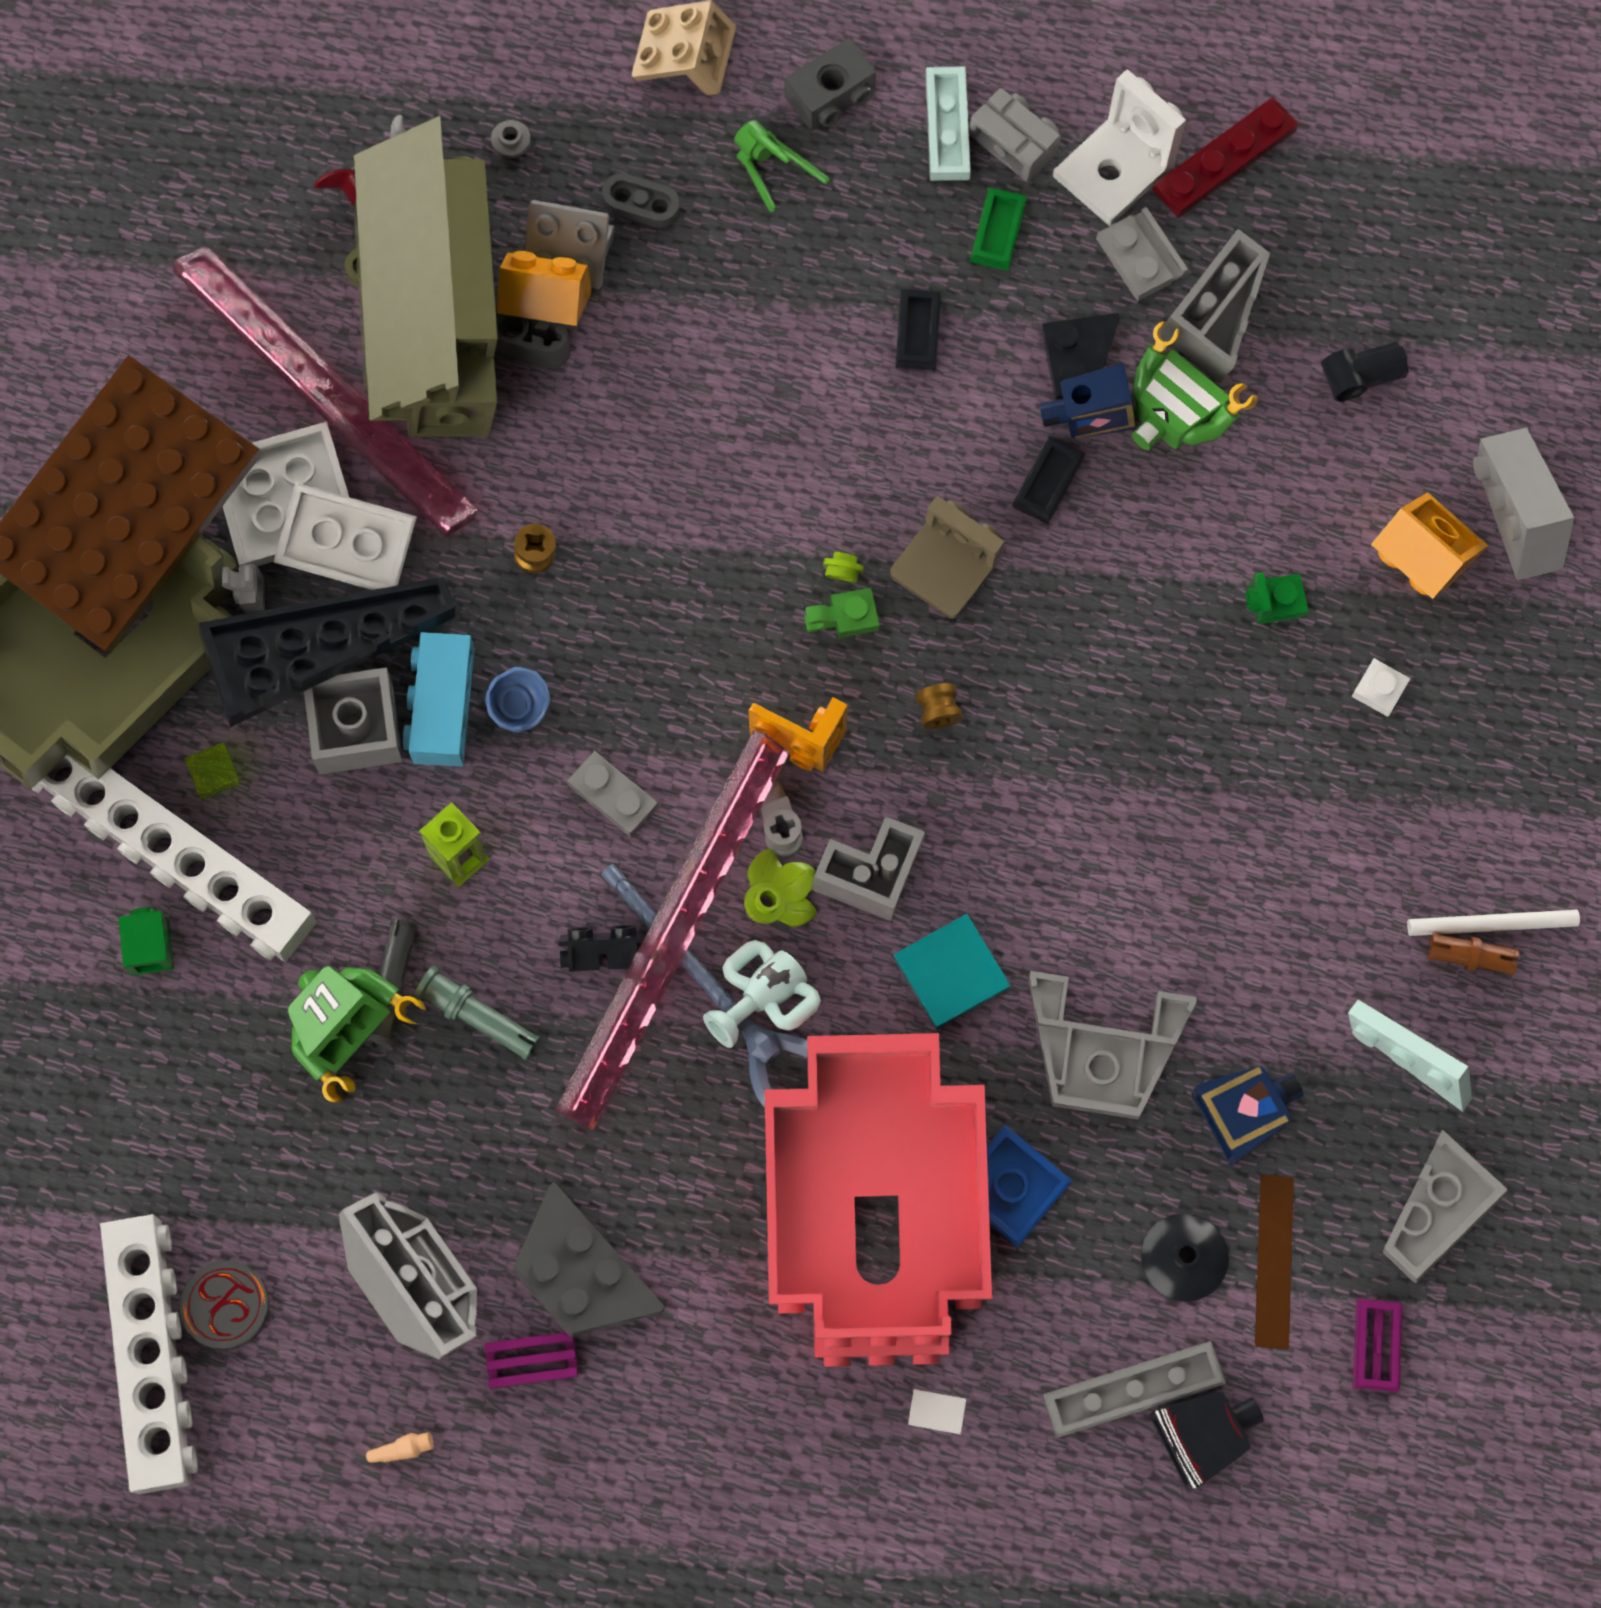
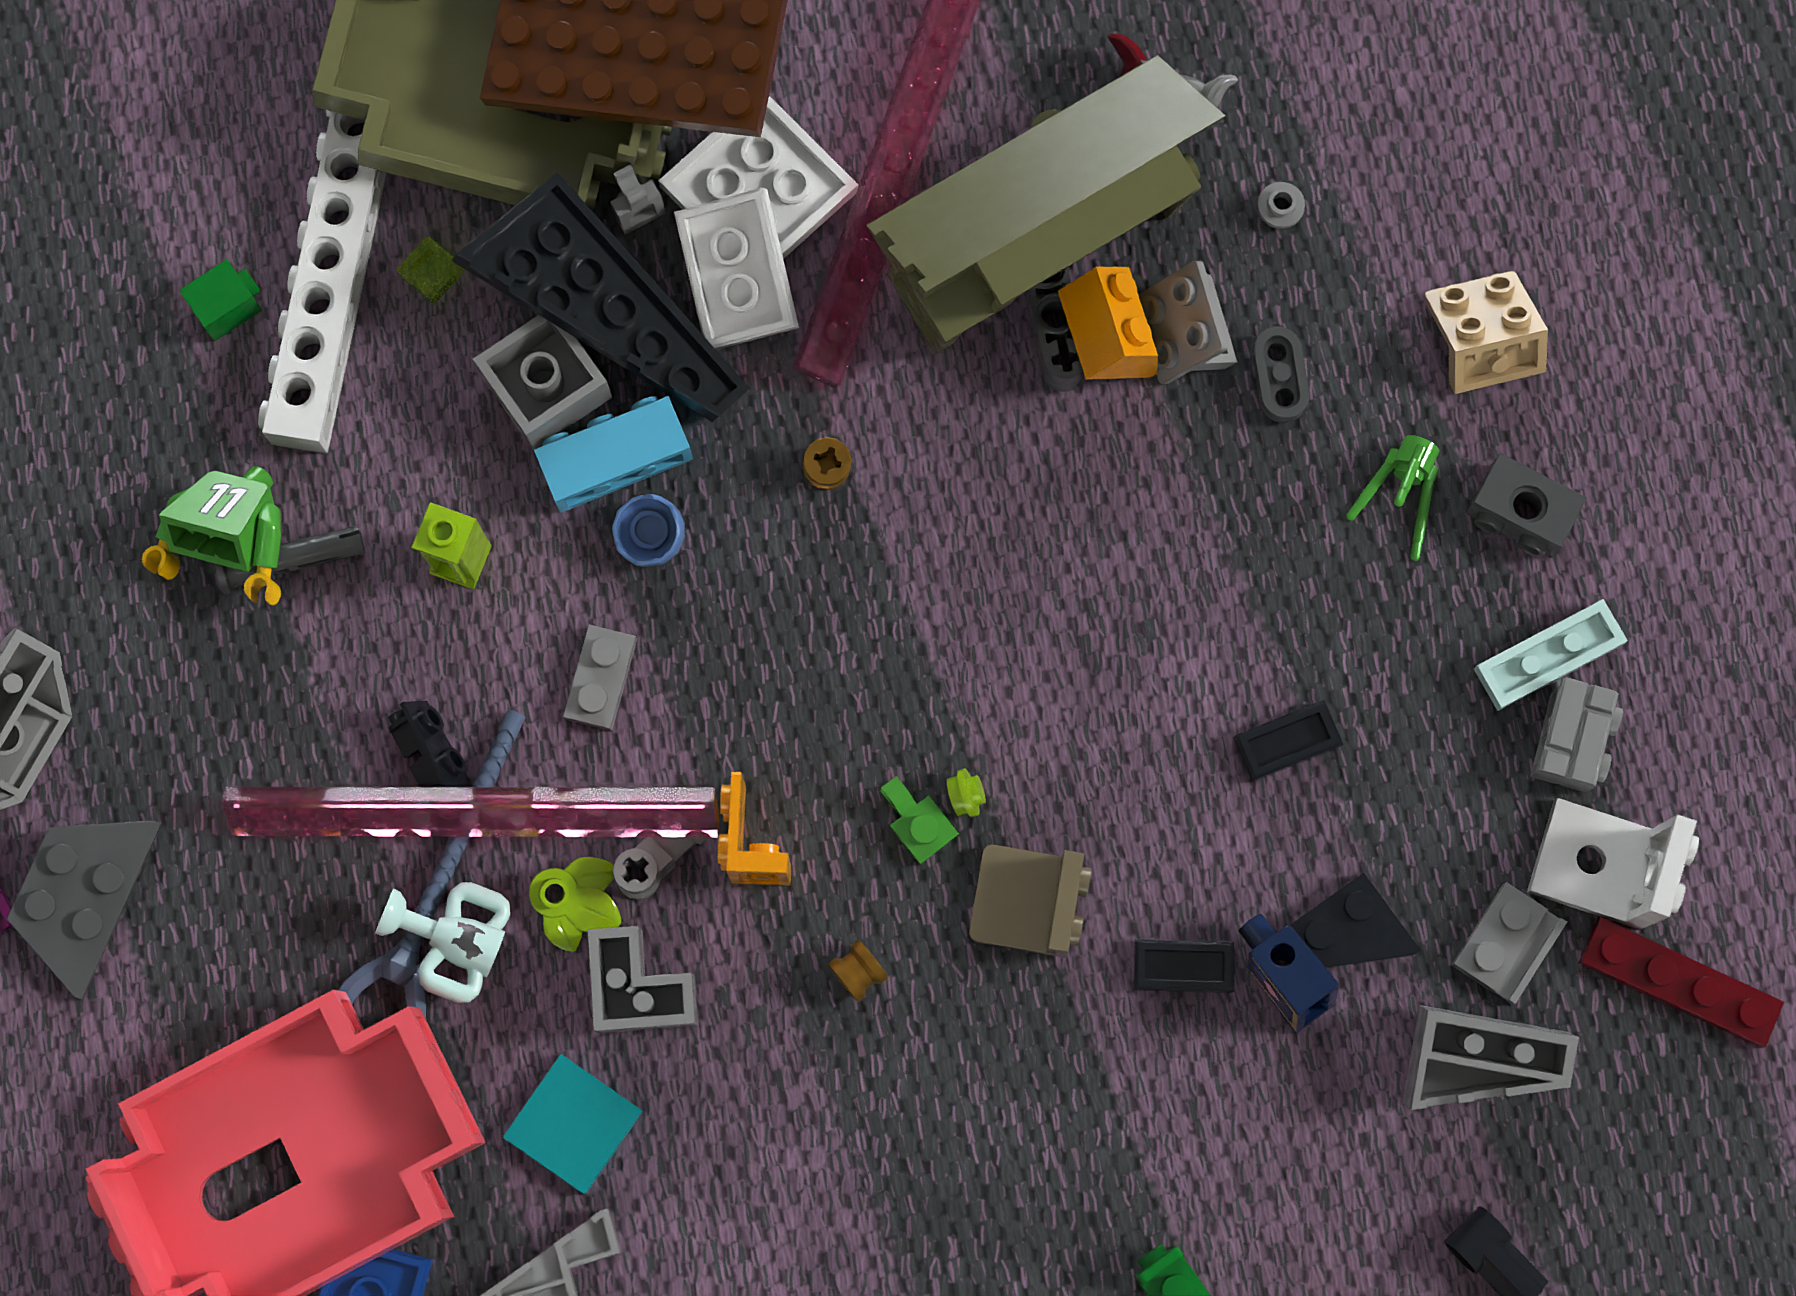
camera: 65 degrees right, 5 degrees up
(459, 1003) = (301, 636): sand green pin -> none
(998, 228) = (1455, 771): green tile -> none
(1179, 400) = (1347, 1066): bright green torso -> none

